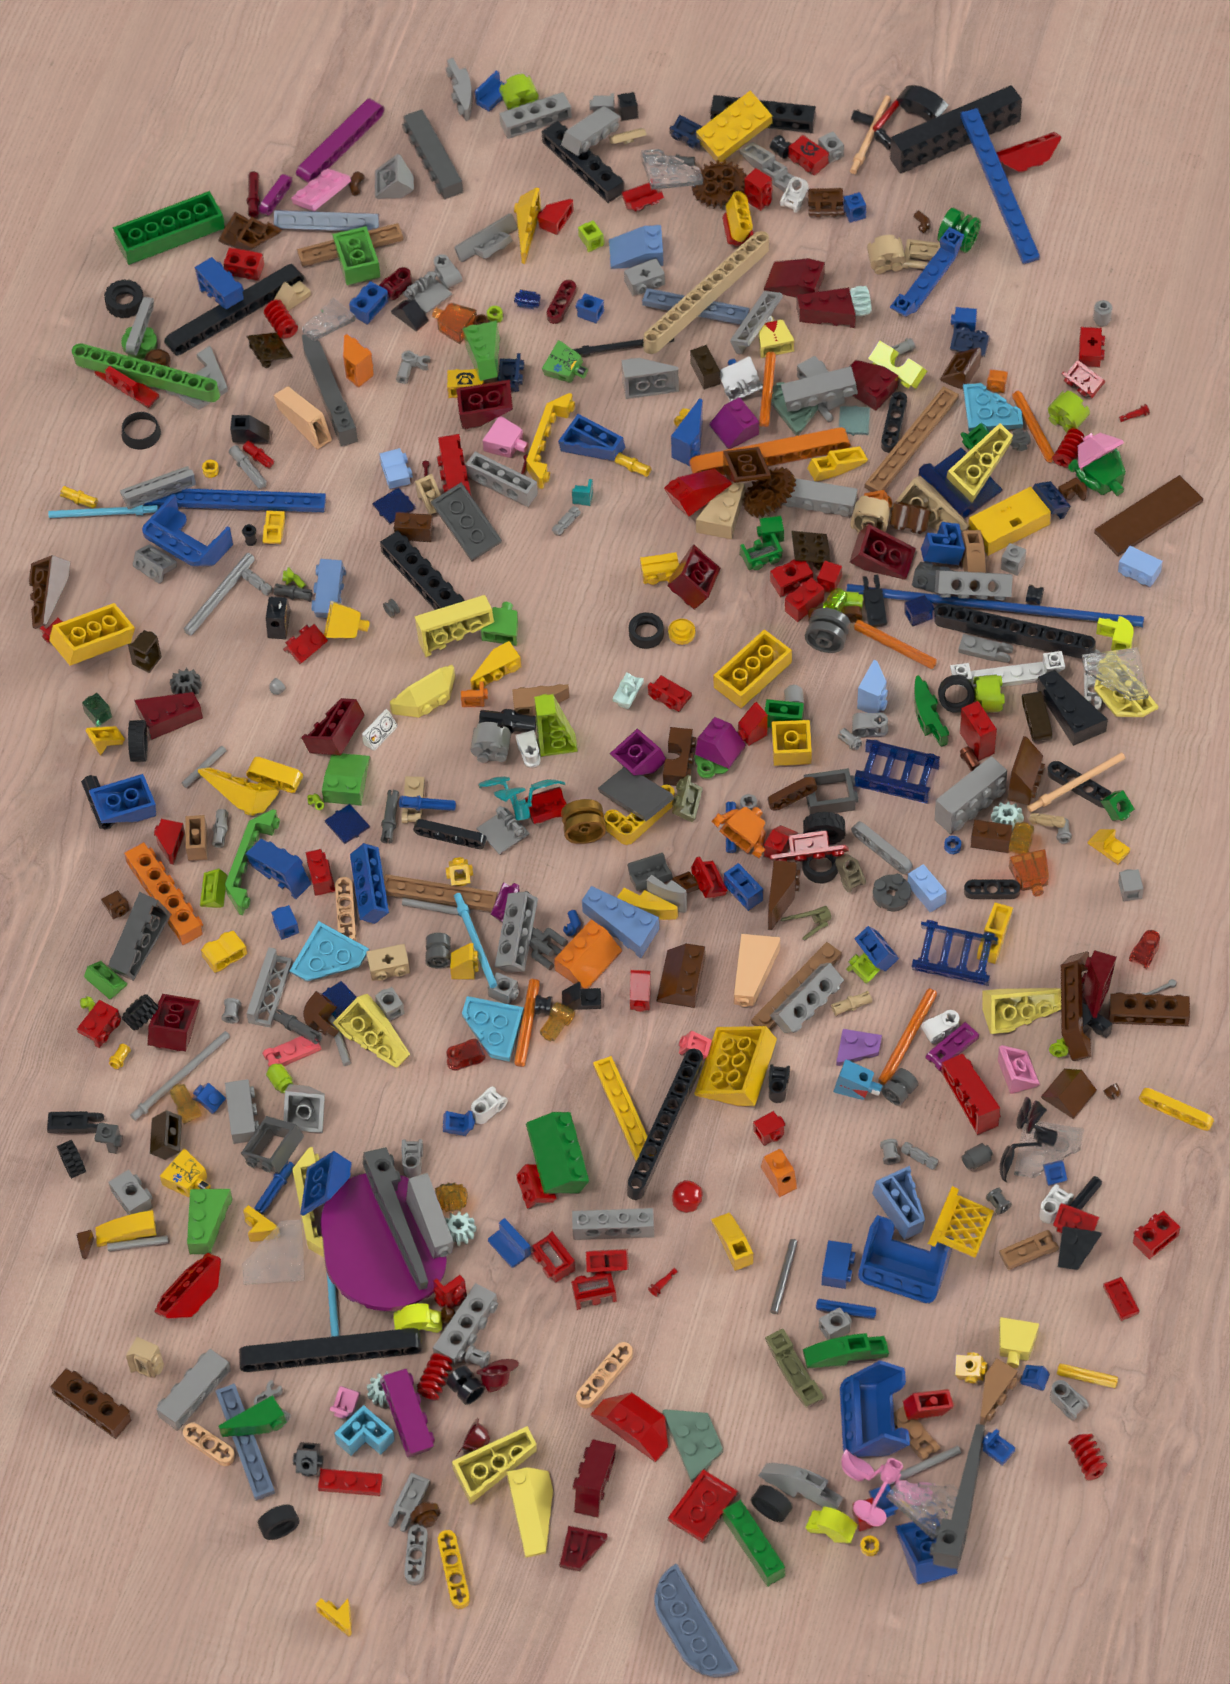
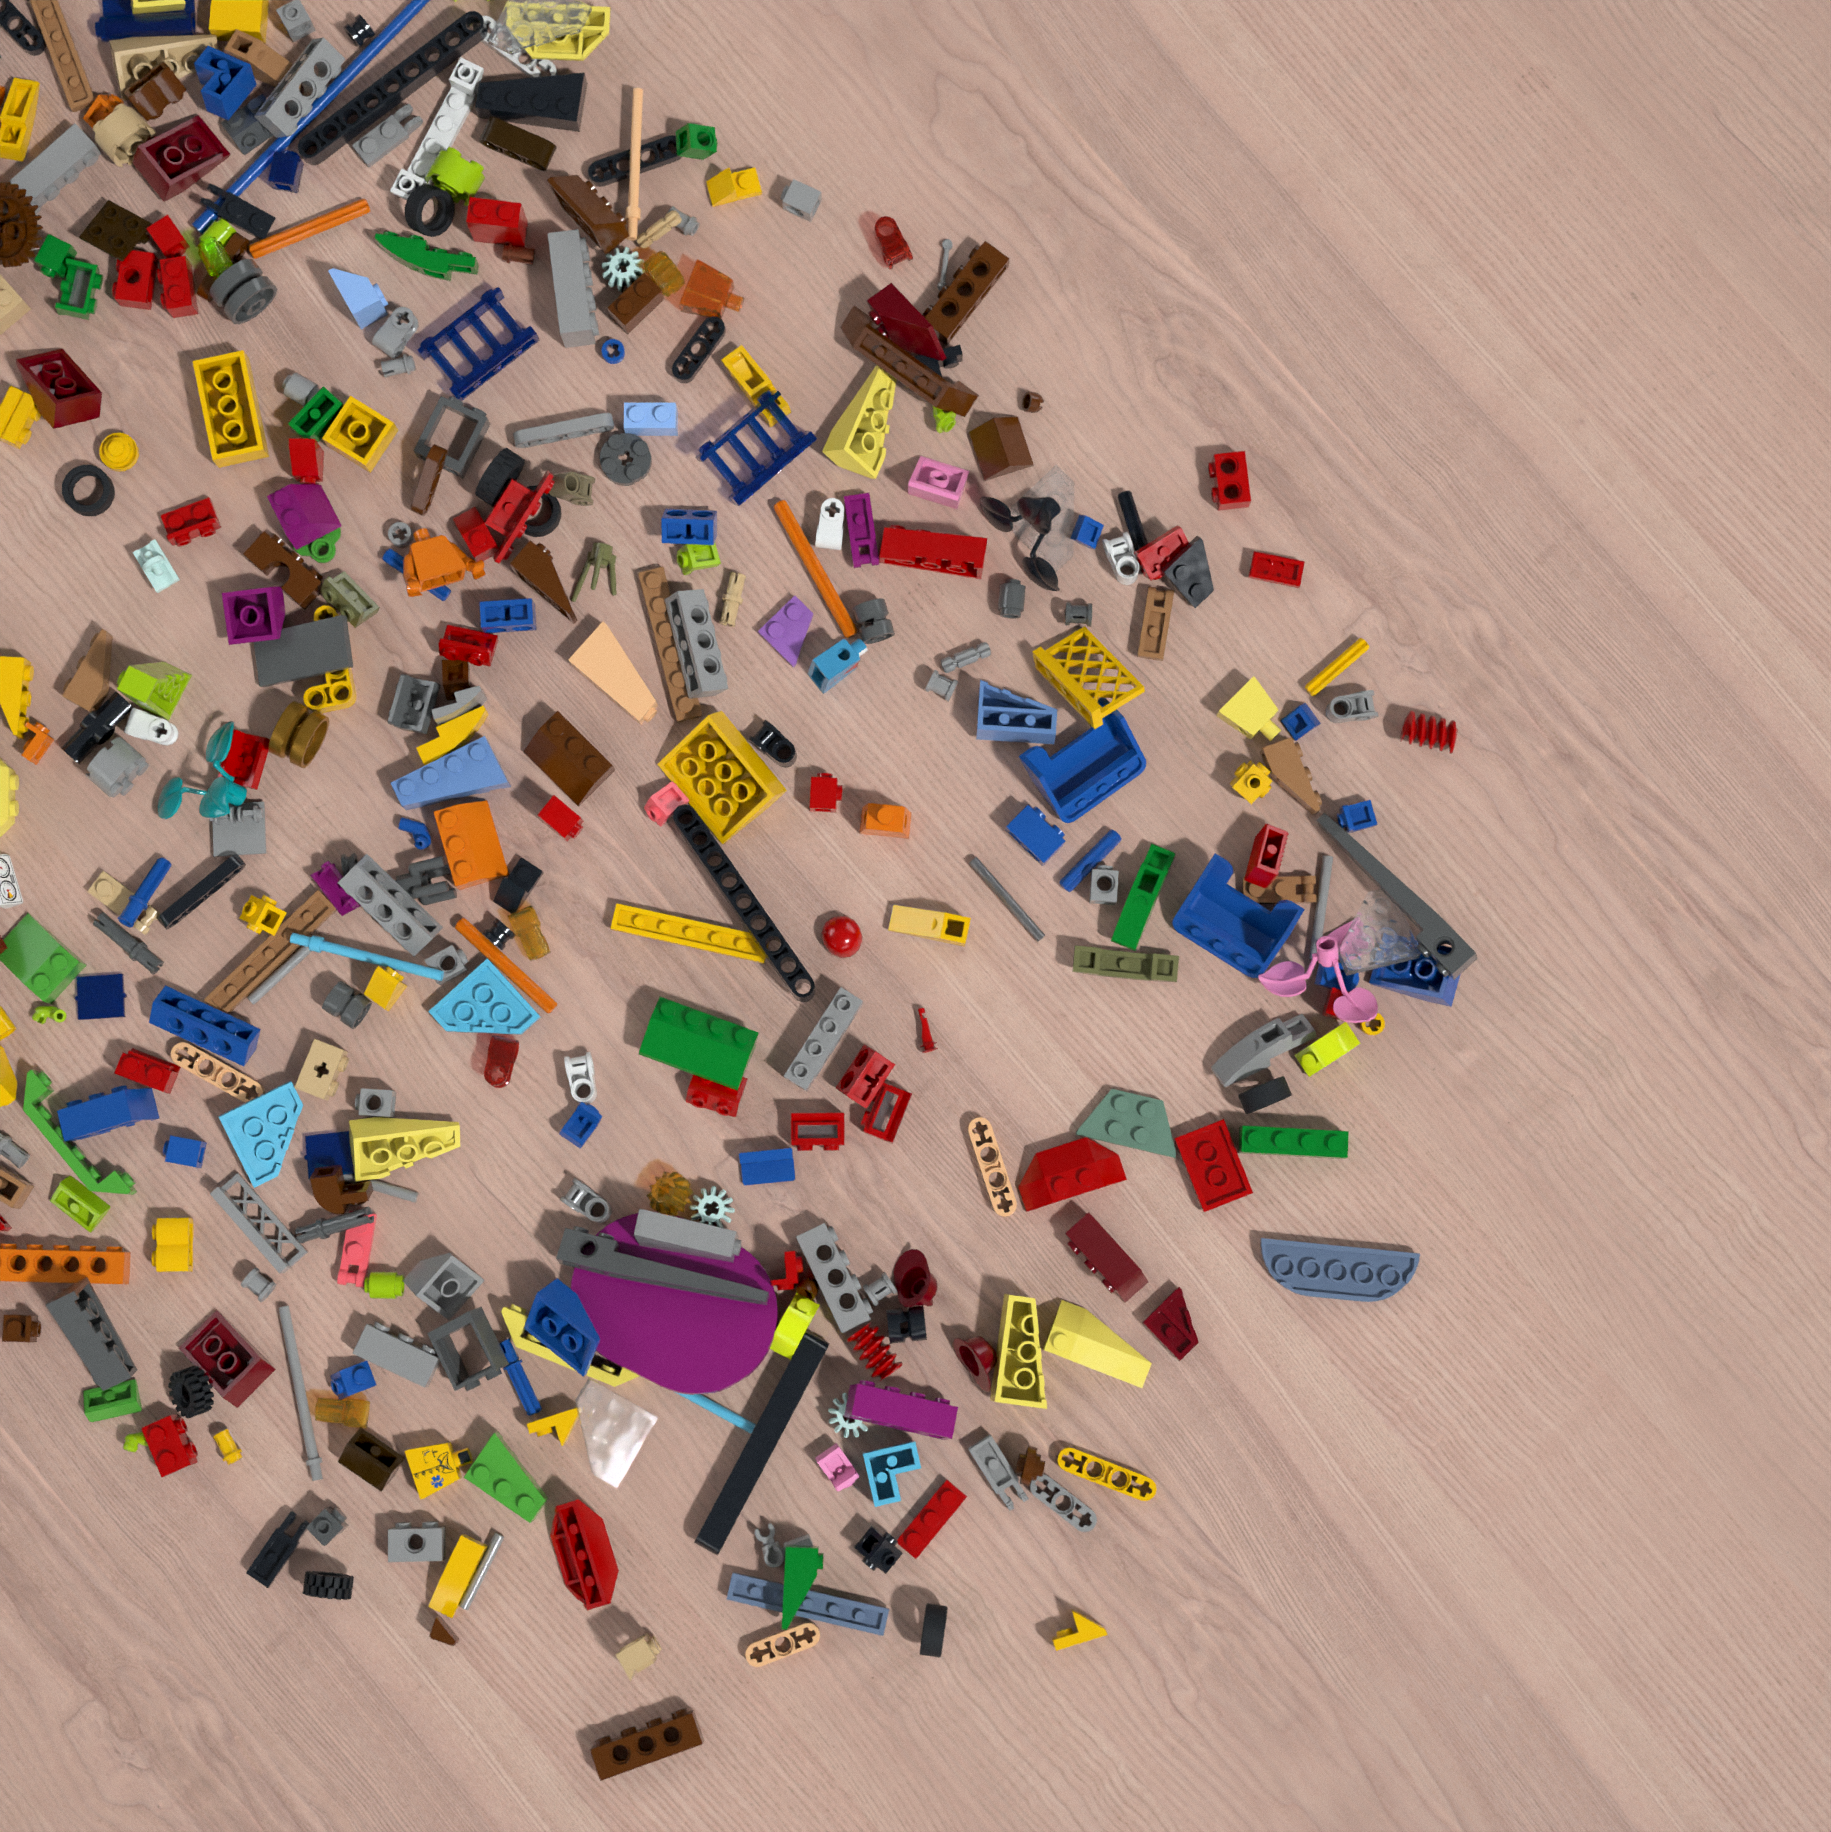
camera: 60 degrees left, 25 degrees up
(193, 1389) = (707, 1622): light grey brick -> none
(1176, 1109) = (1101, 352): yellow beam -> none

